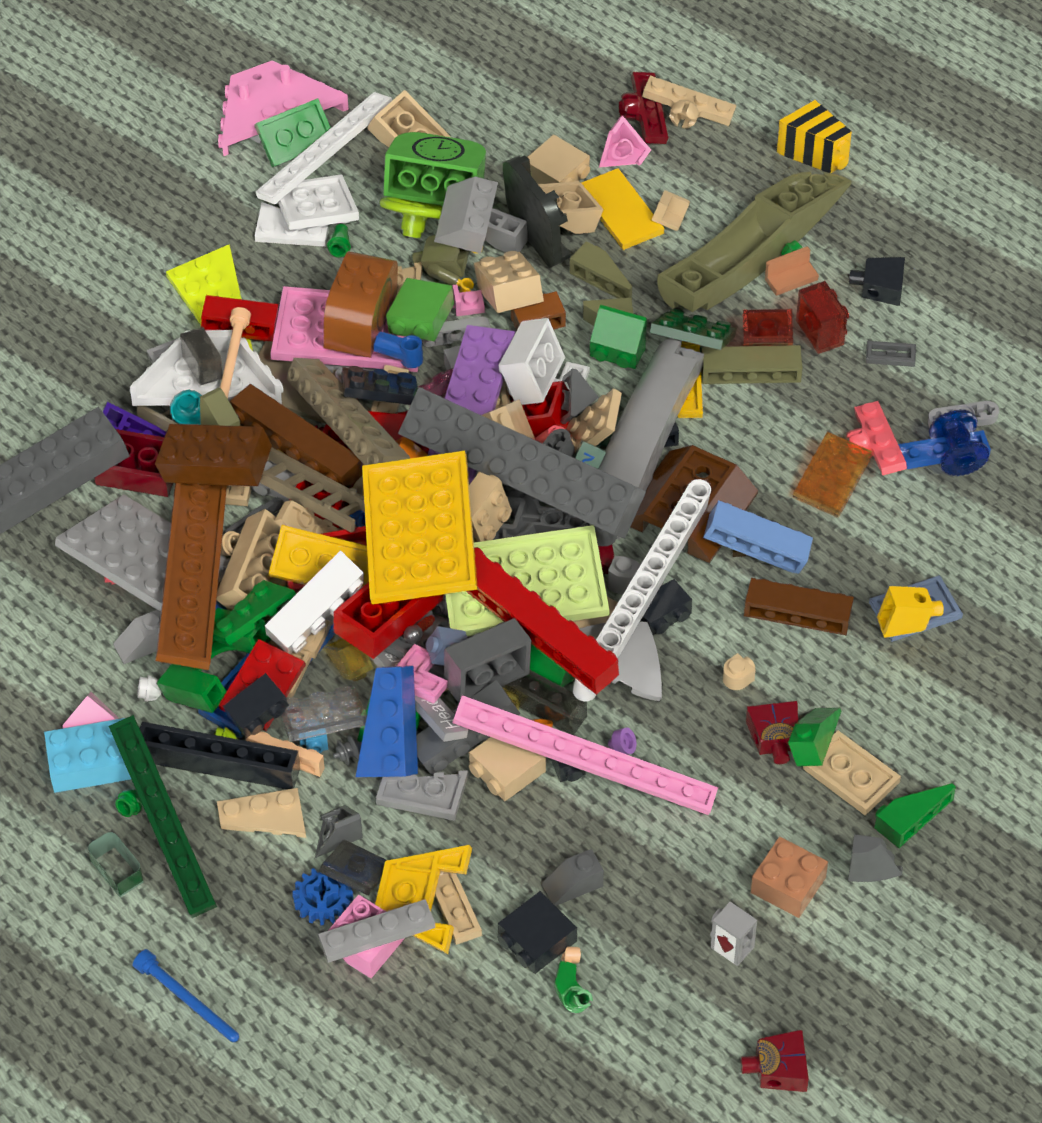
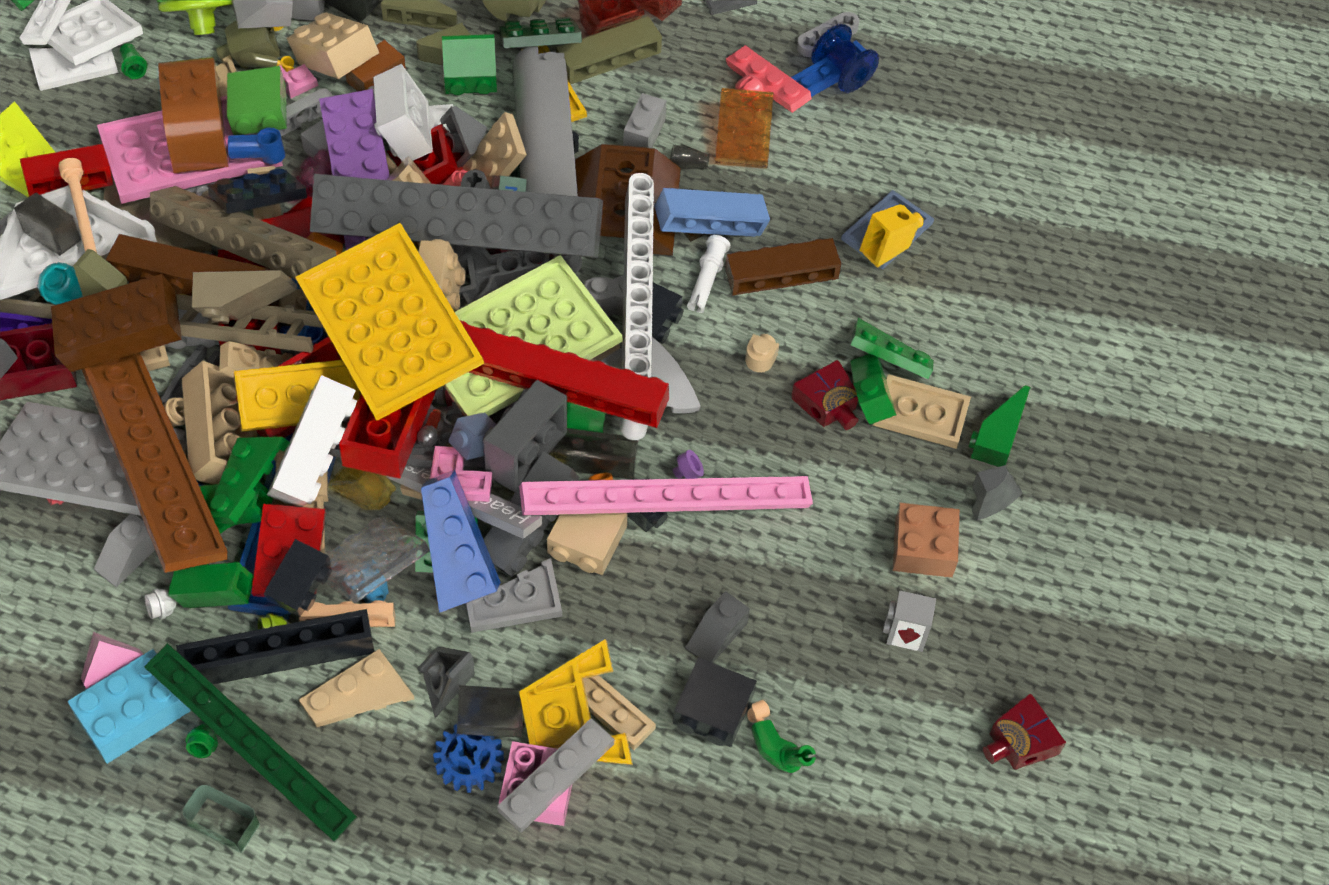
camera: 30 degrees left, 5 degrees up
(313, 464) = (237, 293): none -> dark tan slope
(347, 750) = (413, 585): dark grey wheel -> none
(737, 581) = (710, 264): none -> white pin
(746, 440) = (645, 122): none -> light grey brick
(769, 483) = (688, 157): none -> clear smoke cone
(852, 710) = (890, 349): none -> green wing

